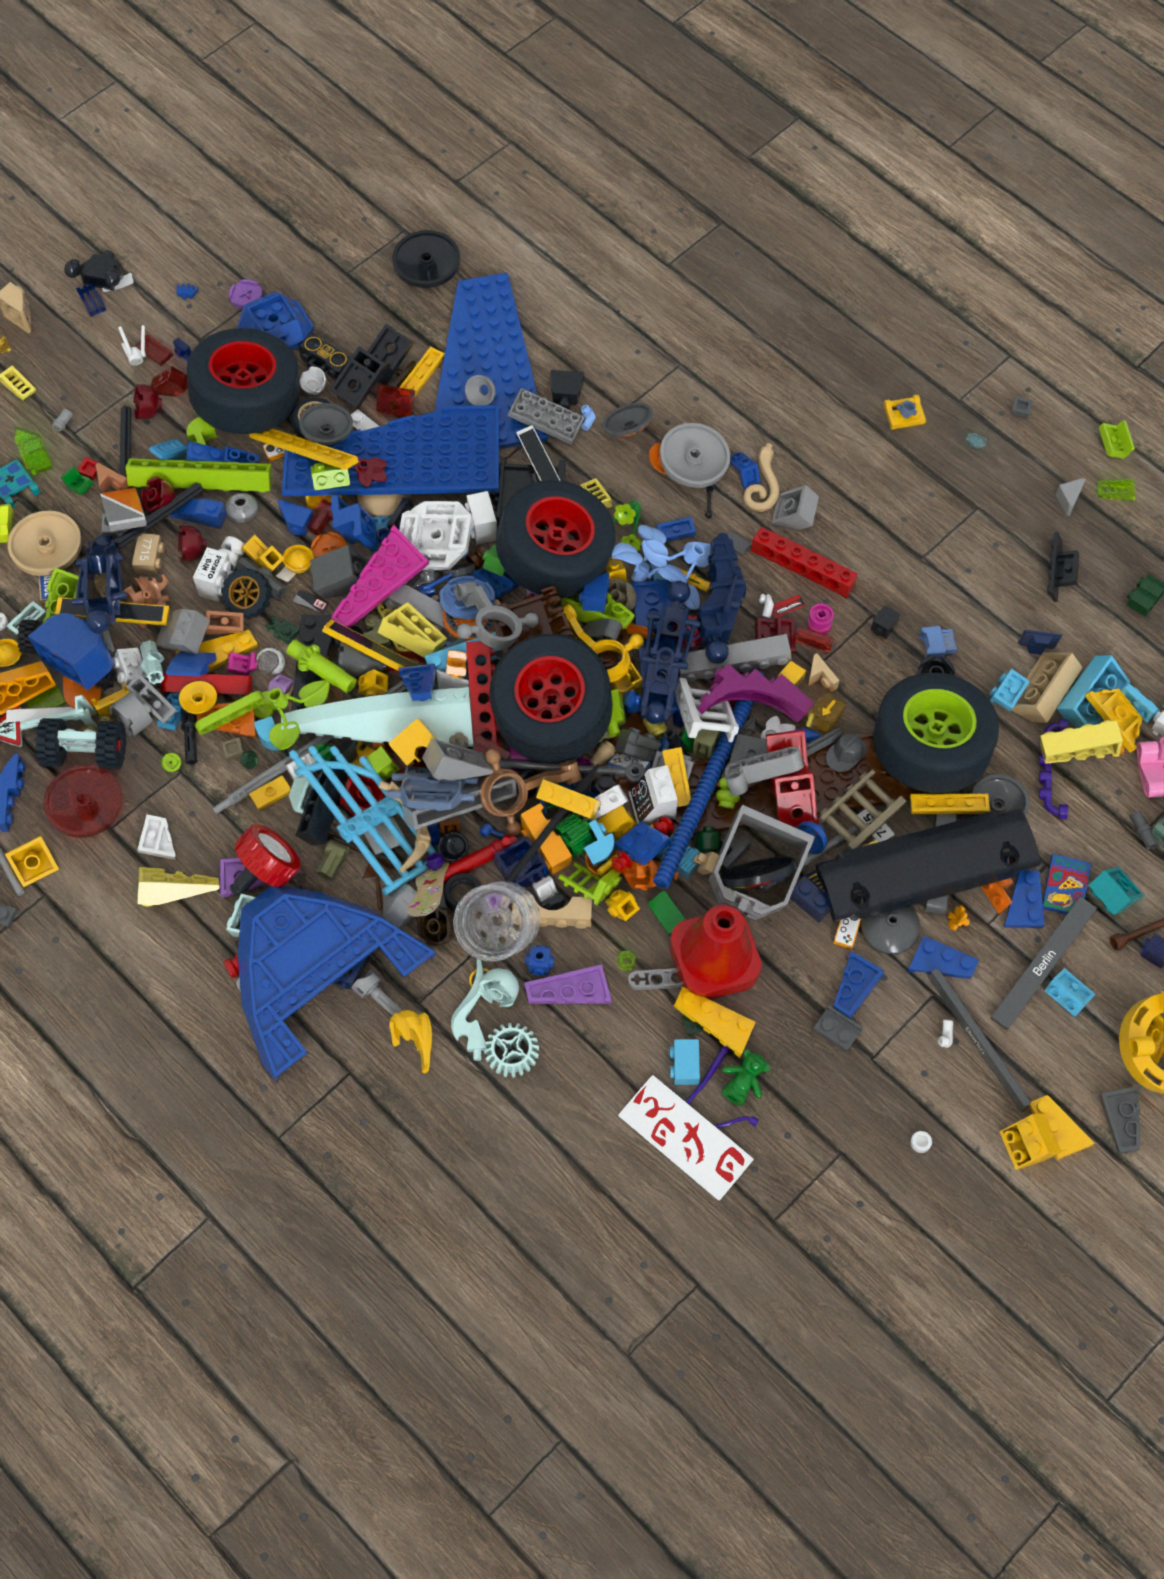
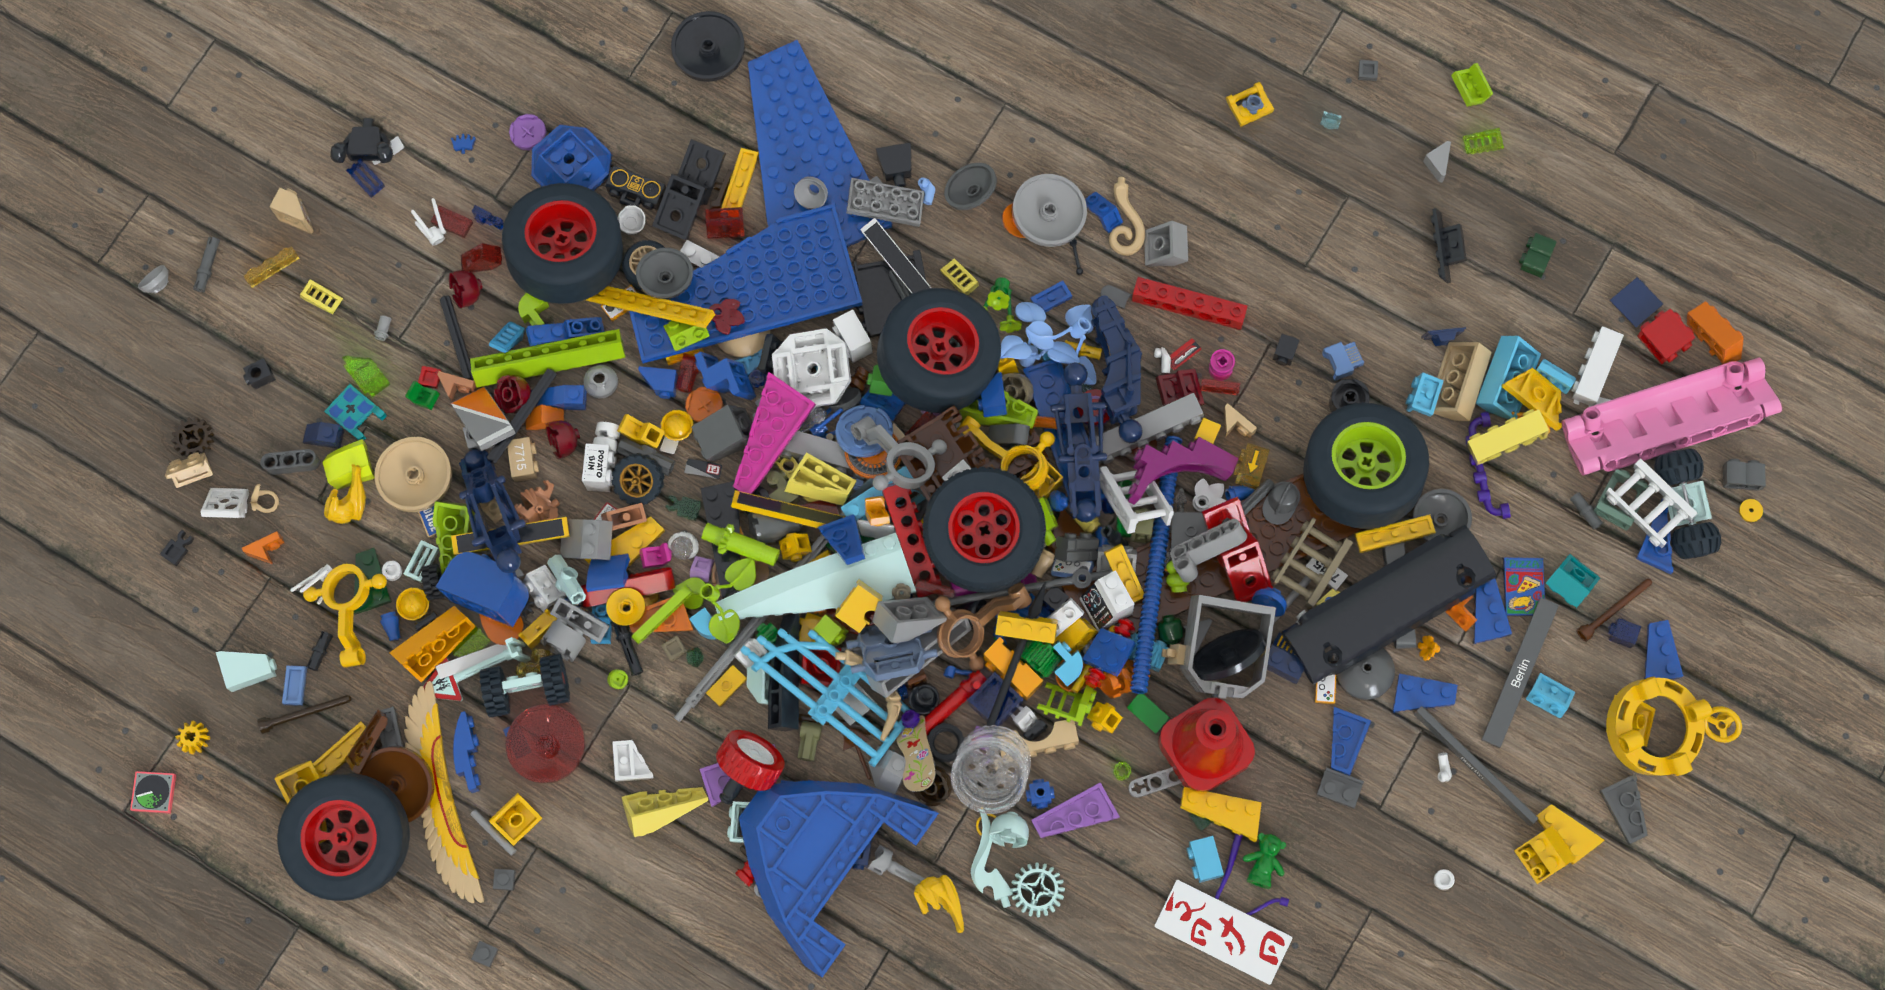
camera: 10 degrees left, 10 degrees up
(174, 520) = (542, 415): none -> orange slope
(225, 698) = (651, 598): none -> pearl gold tile

